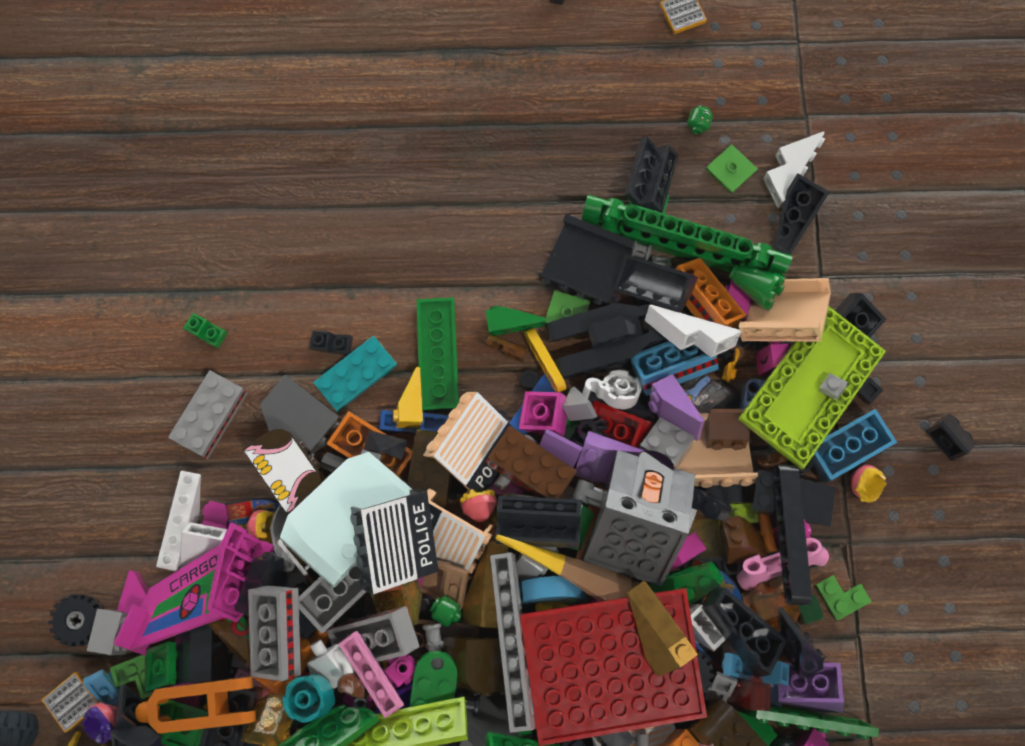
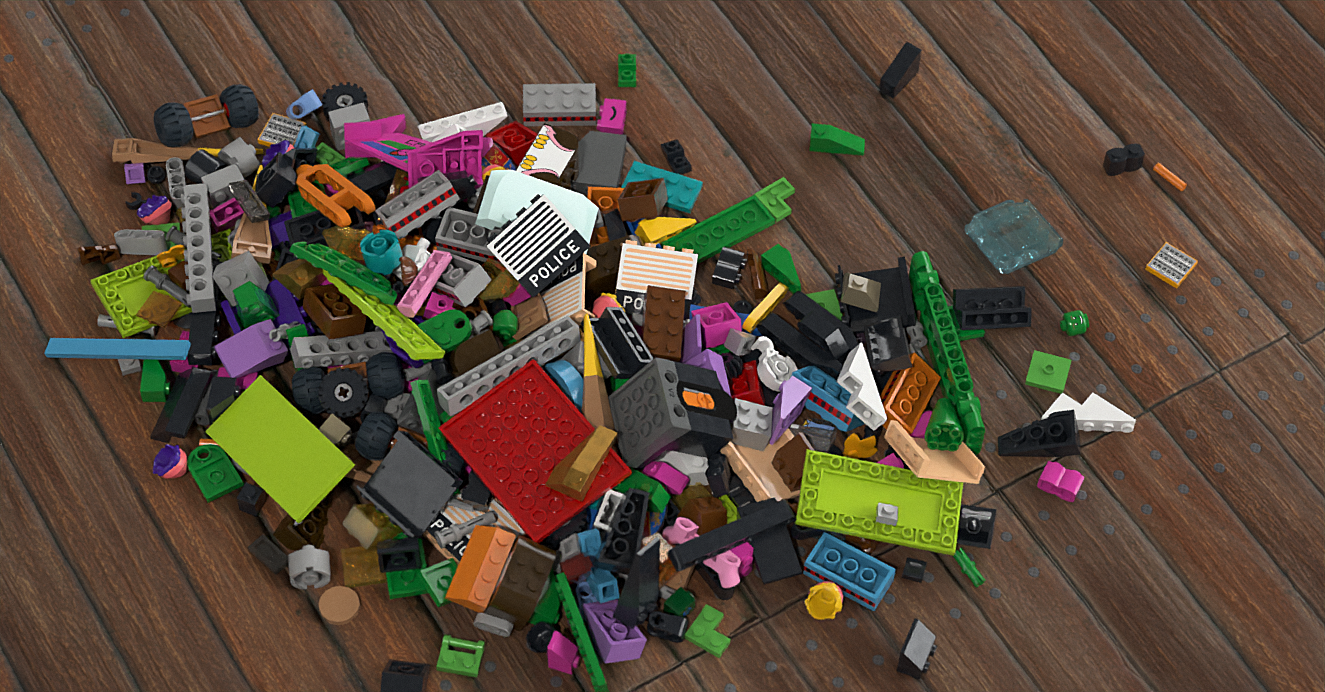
camera: 60 degrees right, 20 degrees down
(54, 661) = (306, 104): none -> medium blue piece
(228, 480) = (513, 140): none -> red slope
(255, 375) = (613, 116): none -> dark pink brick
(361, 99) = (901, 70): none -> black slope
(372, 402) = (642, 199): none -> reddish brown brick
(398, 197) = (834, 140): none -> green slope
(426, 286) = (773, 197): none -> bright green plate
(481, 366) = (728, 268): none -> black brick
(577, 271) = (860, 292): none -> dark tan slope
(587, 122) = (1013, 235): none -> clear light blue wedge
(826, 630) = (669, 627): none -> black piece
(844, 224) = (1060, 481): none -> dark pink brick
(893, 345) = (968, 567): none -> green pin

